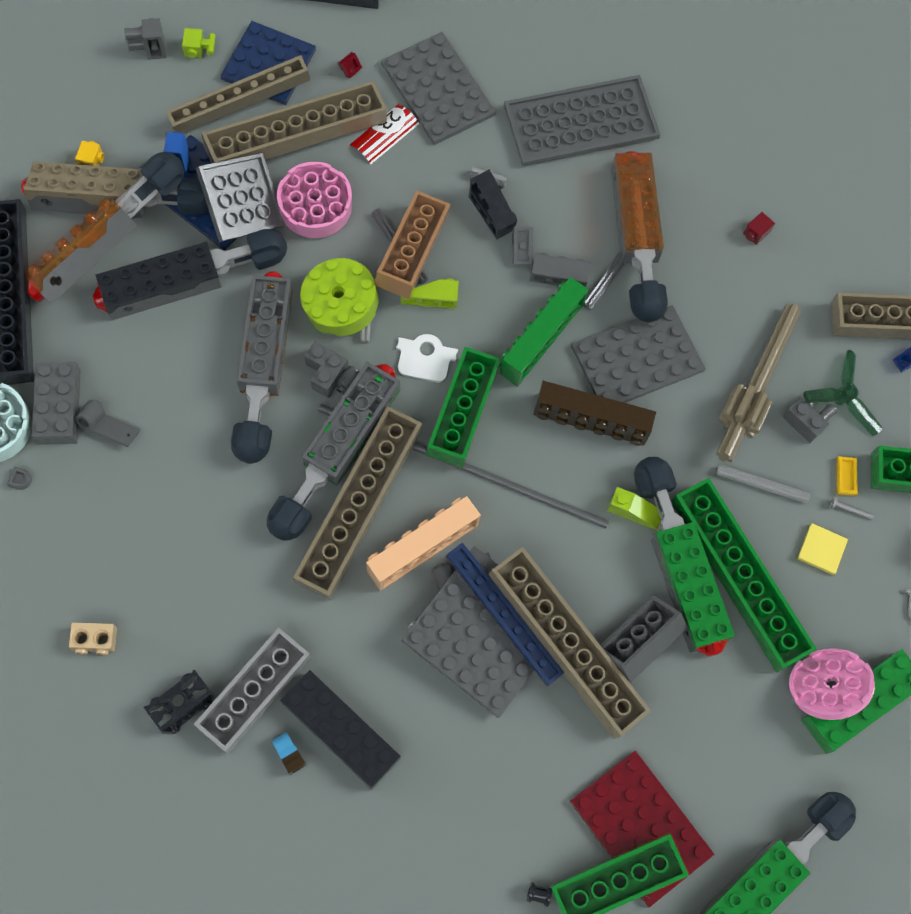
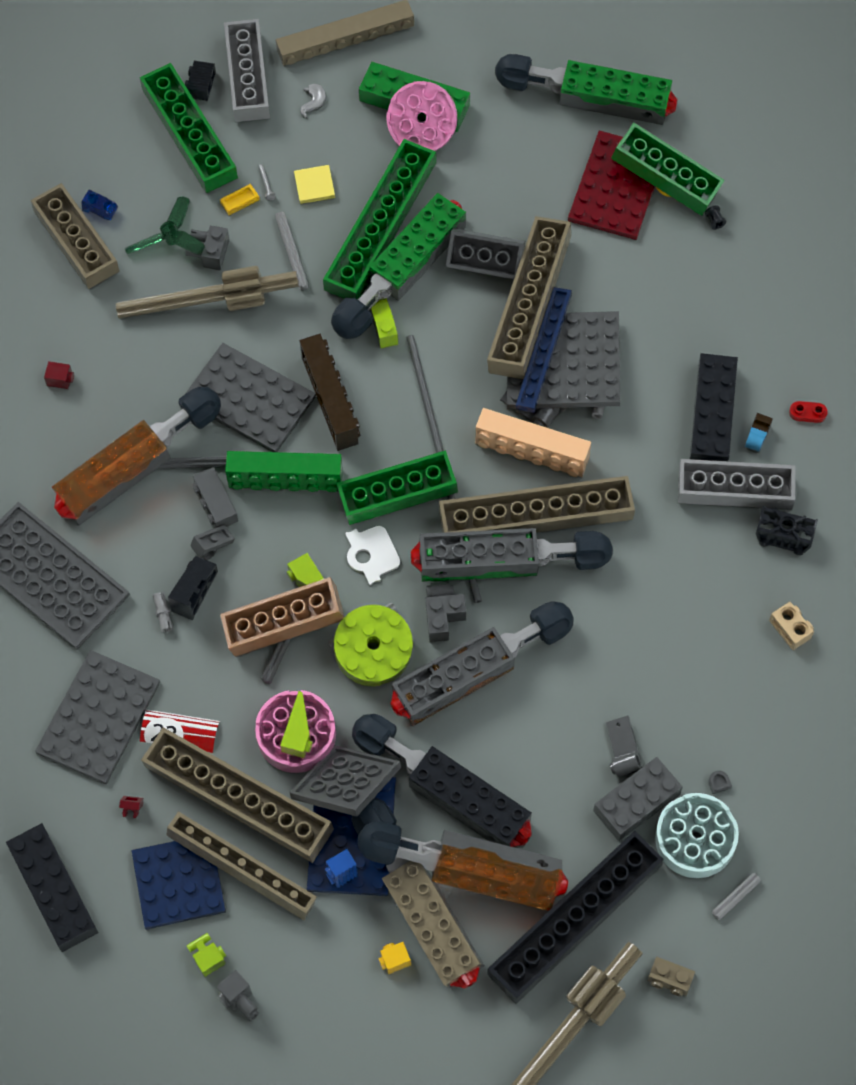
camera: 115 degrees left, 5 degrees down
(276, 820) = (808, 412): none -> red plate
(306, 189) = (296, 736): none -> lime slope

